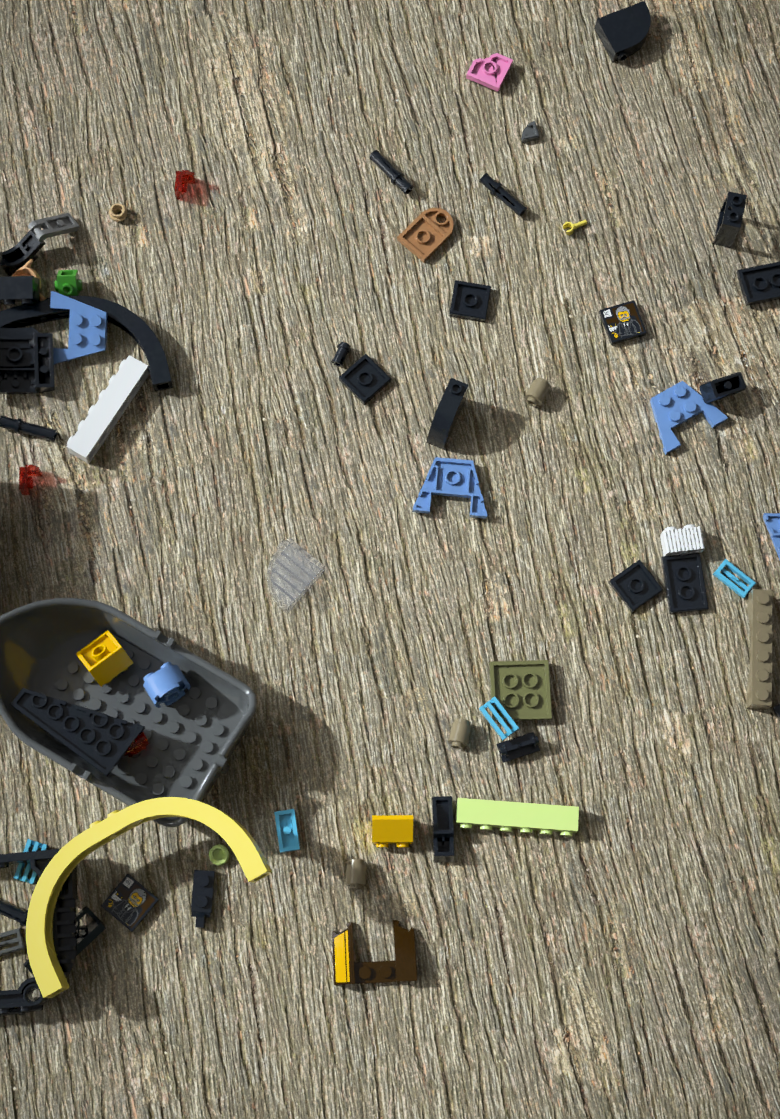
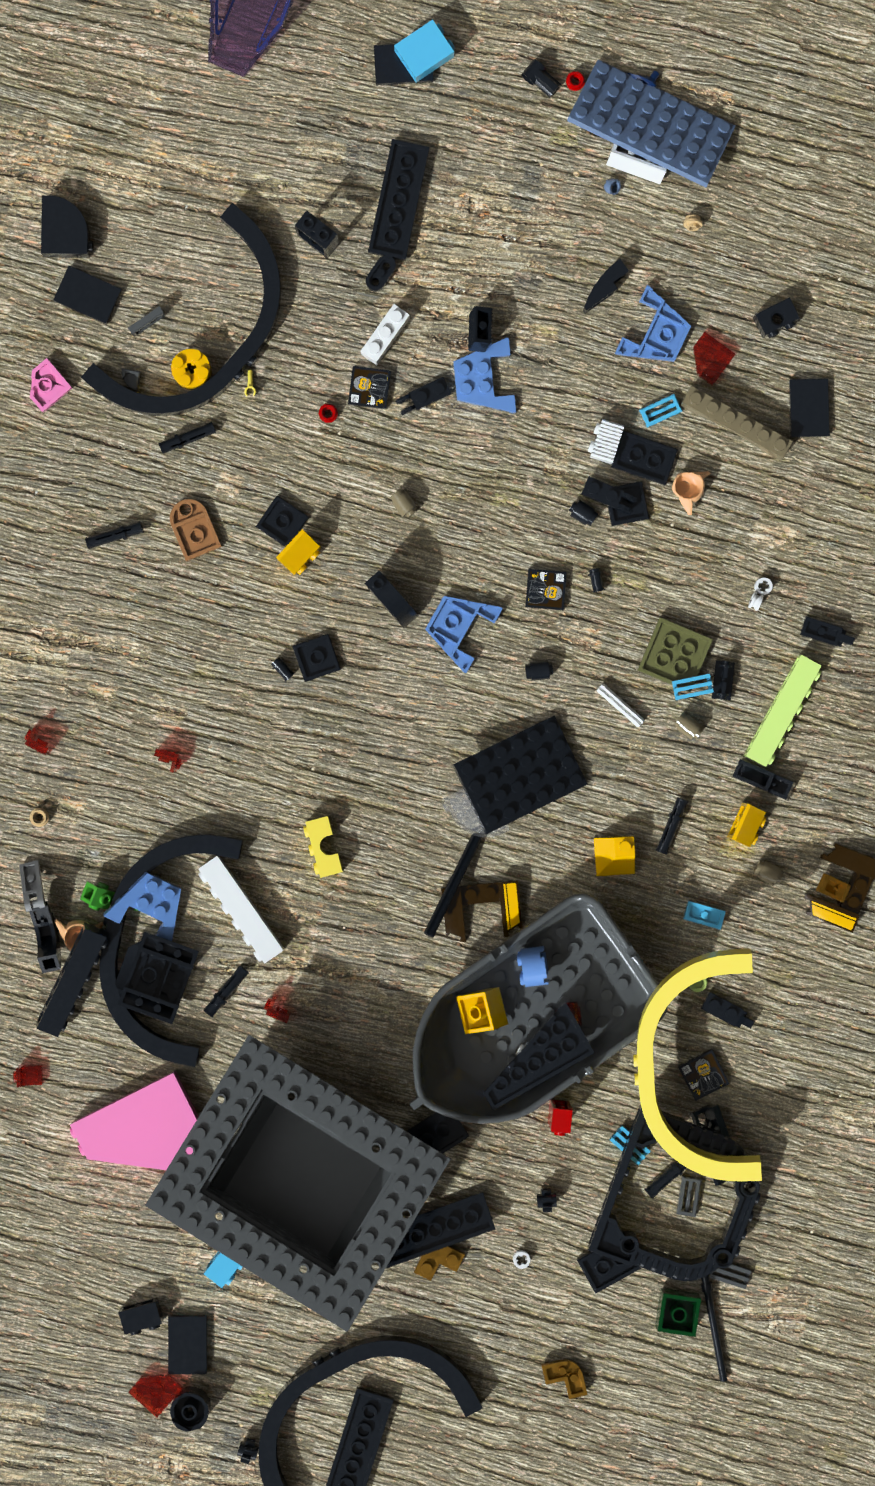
camera: 60 degrees left, 15 degrees up
(30, 774) = (560, 1117): none -> red brick
(201, 591) = (504, 891): none -> dark brown wedge
(208, 443) = (325, 863): none -> light yellow arch
(210, 580) = (452, 886): none -> black axle
(218, 297) = (166, 756): none -> clear red bracket
(306, 720) = (614, 855): none -> yellow slope
(342, 597) = (519, 774): none -> black plate
(352, 761) = (672, 825): none -> black pin
(369, 945) = (833, 887): none -> pearl gold bracket
(446, 573) = (538, 670): none -> black brick
(449, 662) = (620, 705): none -> white axle
(450, 320) = (298, 553): none -> yellow slope
(522, 548) = (545, 589): none -> tile
(554, 588) = (596, 579): none -> black pin
(562, 172) = (181, 365): none -> yellow brick
(581, 72) = (87, 295): none -> black tile
(583, 123) = (146, 321): none -> dark grey tile
(583, 293) = (323, 409): none -> red plate
(590, 207) = (235, 366): none -> black arch
(606, 743) = (755, 601): none -> white bush
(608, 549) = (583, 512): none -> black brick
(610, 823) = (825, 632): none -> black hinge
(627, 739) = (766, 591): none -> white bush
(635, 562) = (607, 494): none -> black hinge
(639, 370) = (425, 395): none -> black hinge
(675, 313) = (385, 334): none -> white brick
(679, 633) = (689, 488): none -> light nougat piece
(724, 287) = (380, 273): none -> black plate

